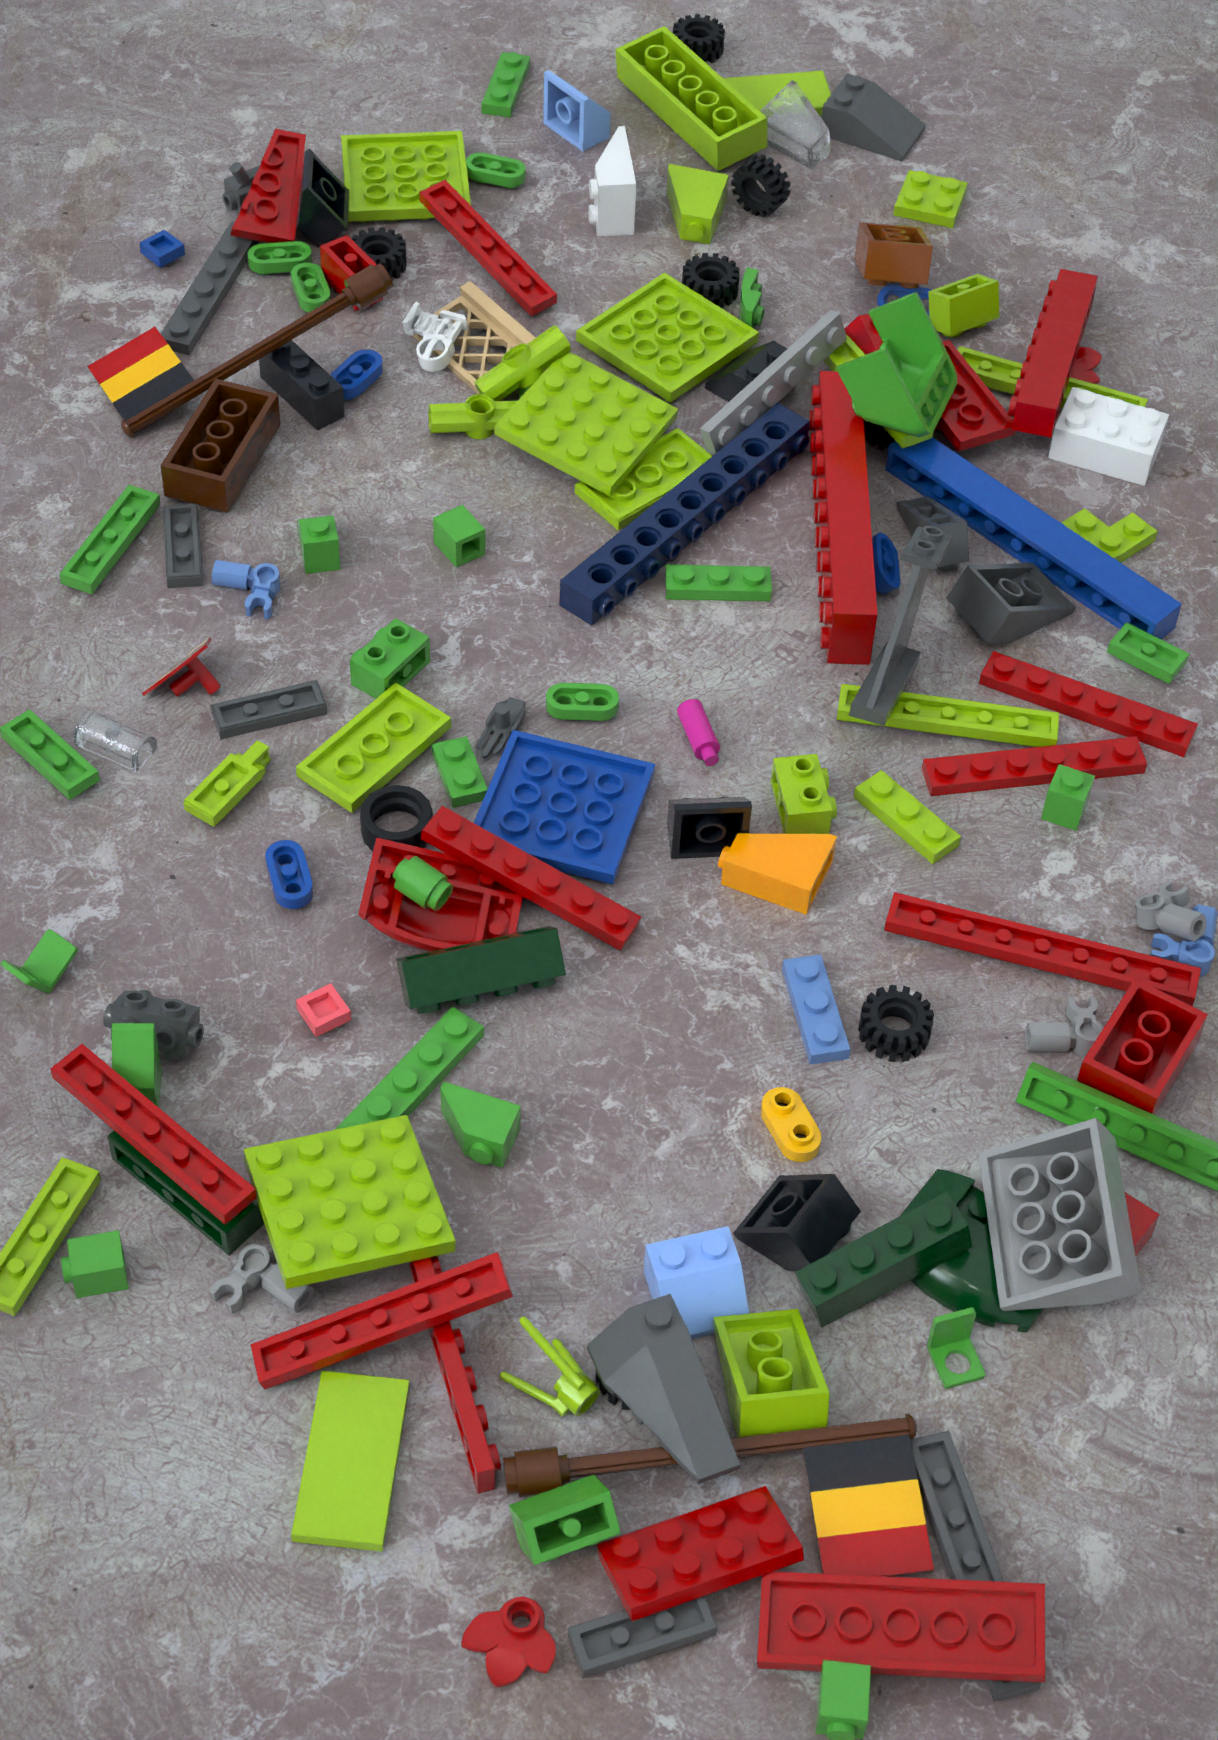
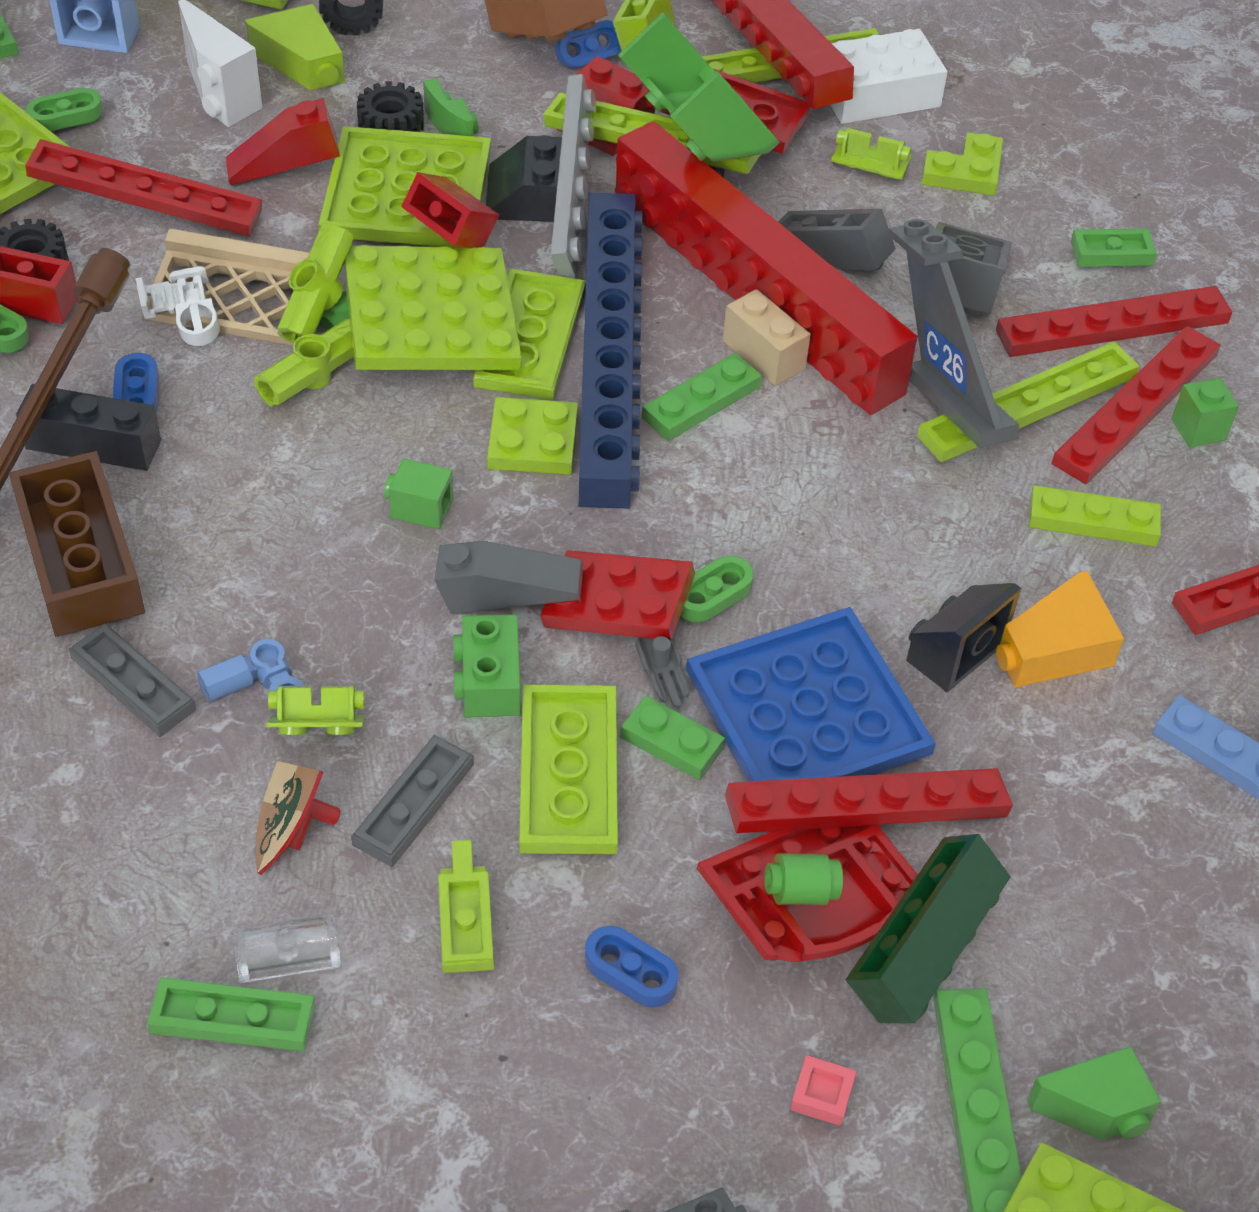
camera: 40 degrees left, 0 degrees up
(110, 539) = (47, 723): bright green plate -> none
(248, 619) = (335, 712): none -> lime hinge
(319, 544) = (282, 584): bright green slope -> none
(395, 799) = (674, 800): black tyre -> none
(448, 611) = (504, 576): none -> dark grey slope
(514, 667) = (624, 596): none -> red plate
(569, 539) = (532, 436): none -> lime plate
(617, 263) = (289, 141): none -> red slope
(659, 363) = (449, 210): none -> red brick
(699, 731) = (846, 550): dark pink cylinder -> none
(799, 567) = (766, 337): none -> tan brick
(802, 795) = (1001, 551): lime brick -> none
(1034, 488) = (855, 150): none -> lime hinge
(1034, 537) = (905, 193): blue brick -> none

